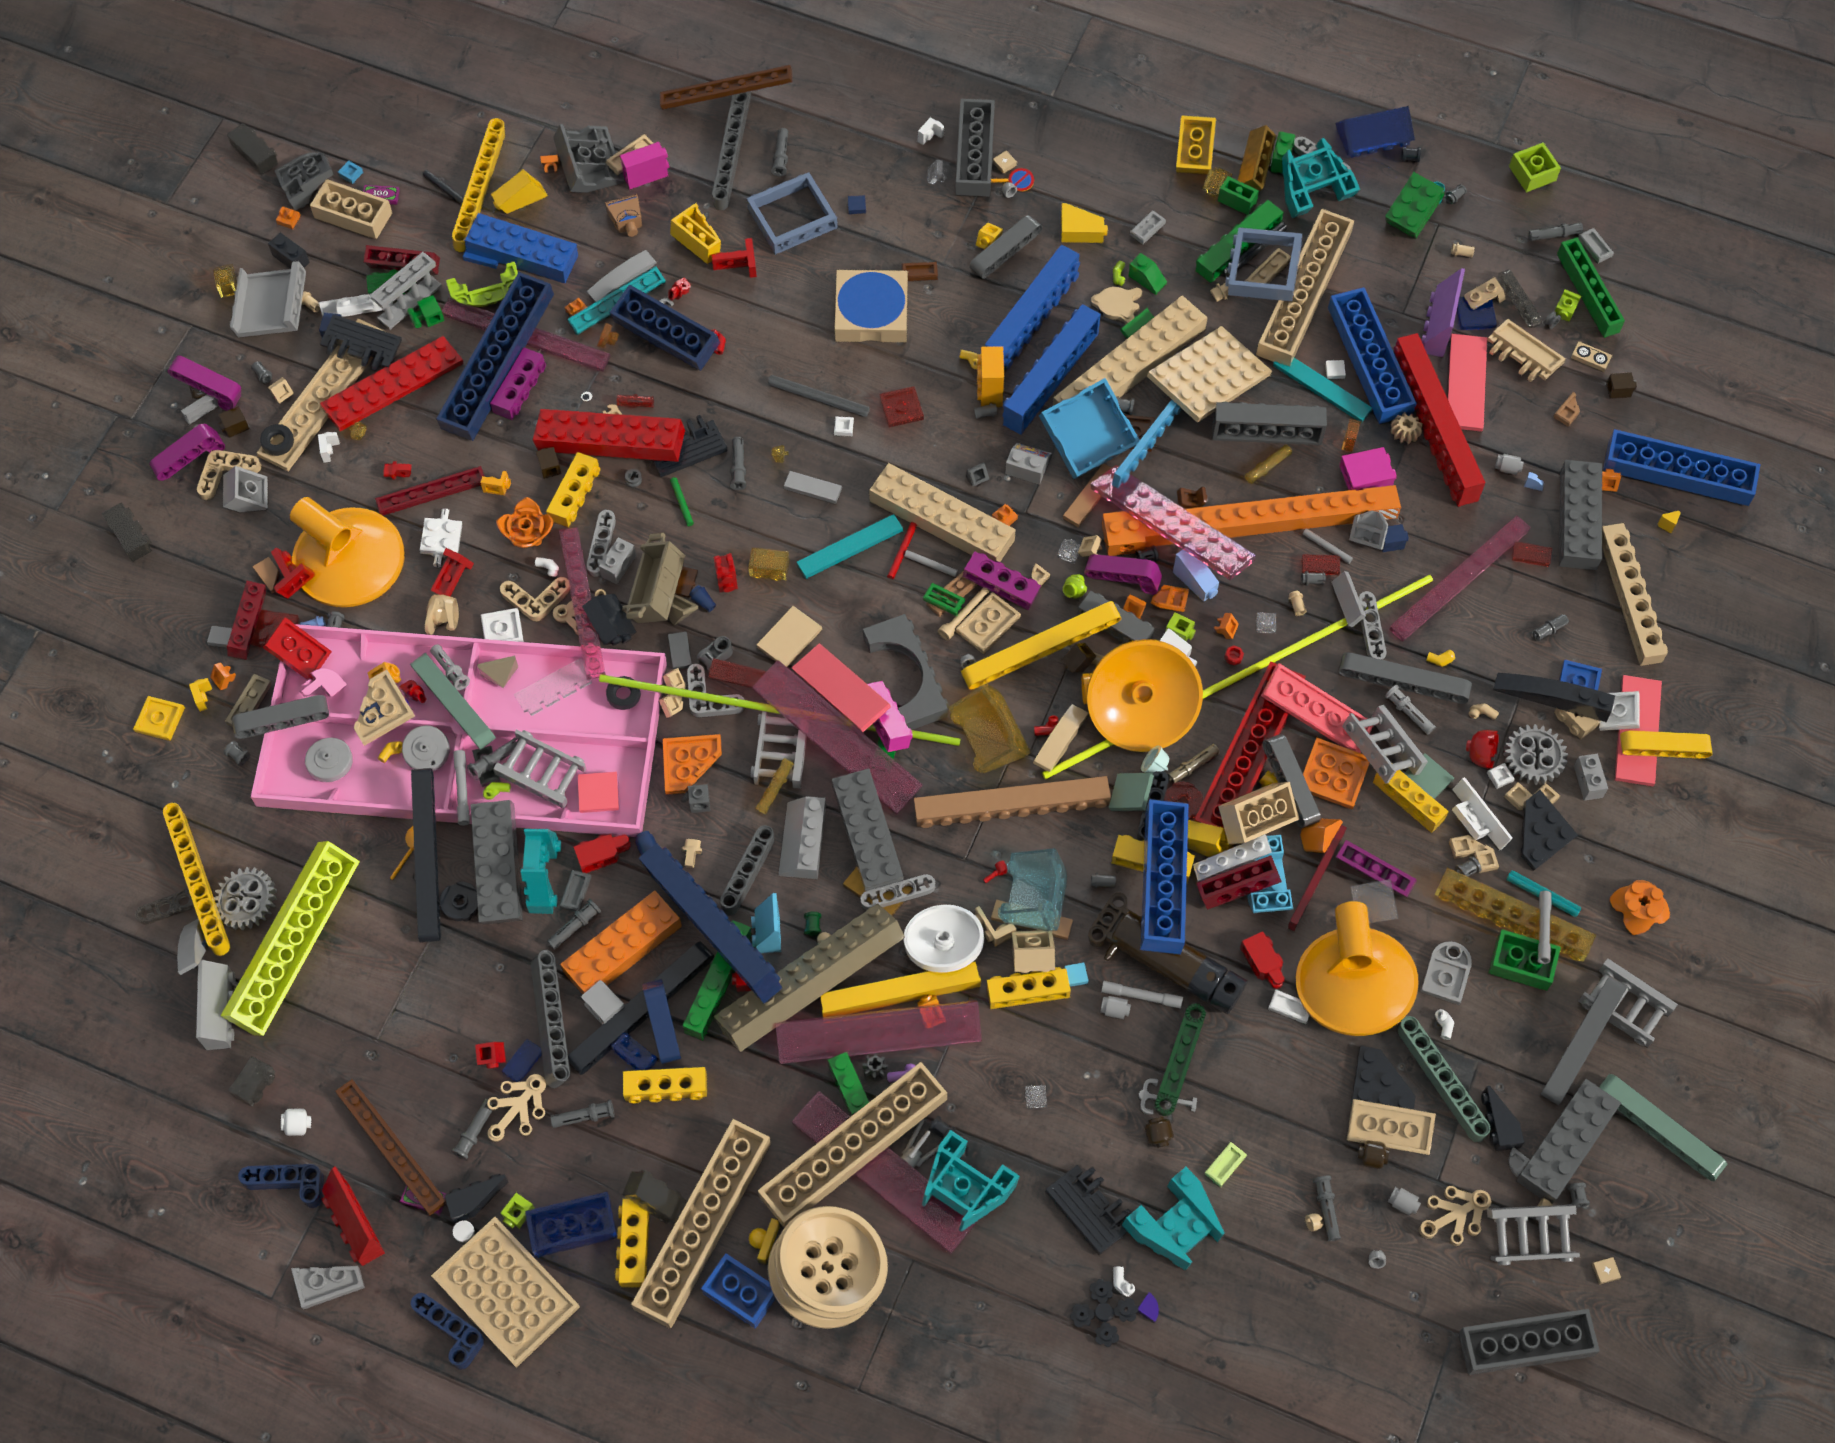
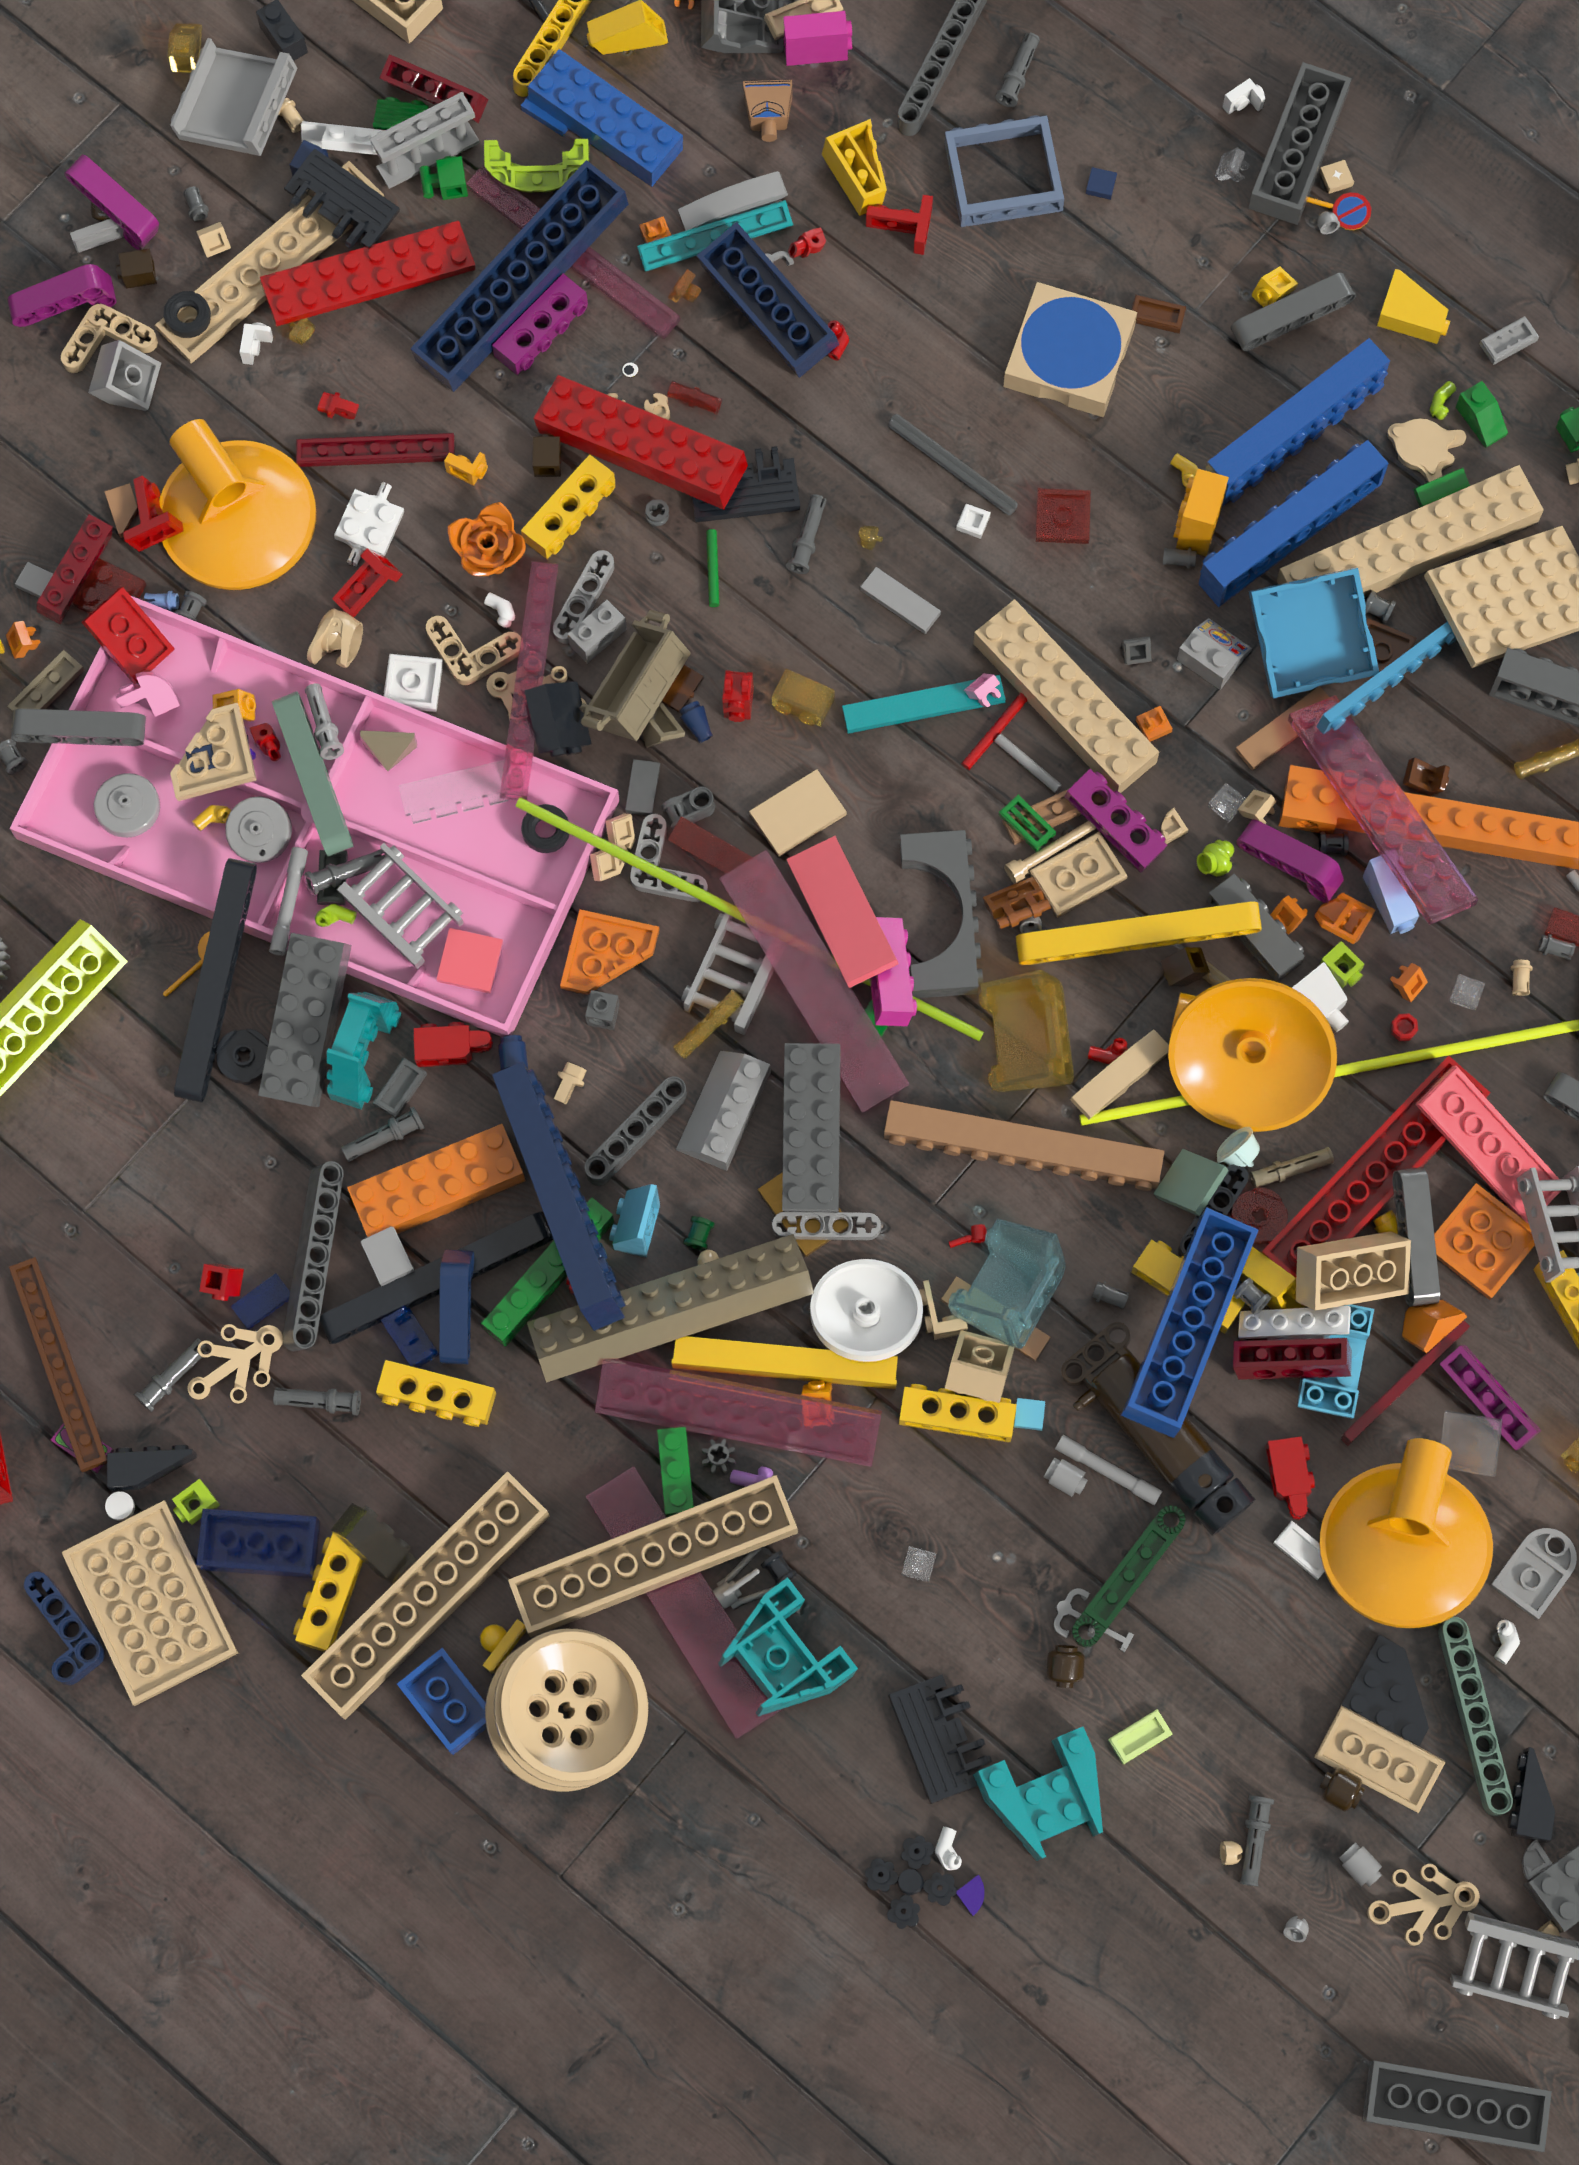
camera: 20 degrees right, 10 degrees up
(885, 524) = (981, 687): none -> bright pink tile
(954, 650) = (1012, 898): none -> dark orange plate
(1198, 850) = (1252, 1296): none -> dark grey bush

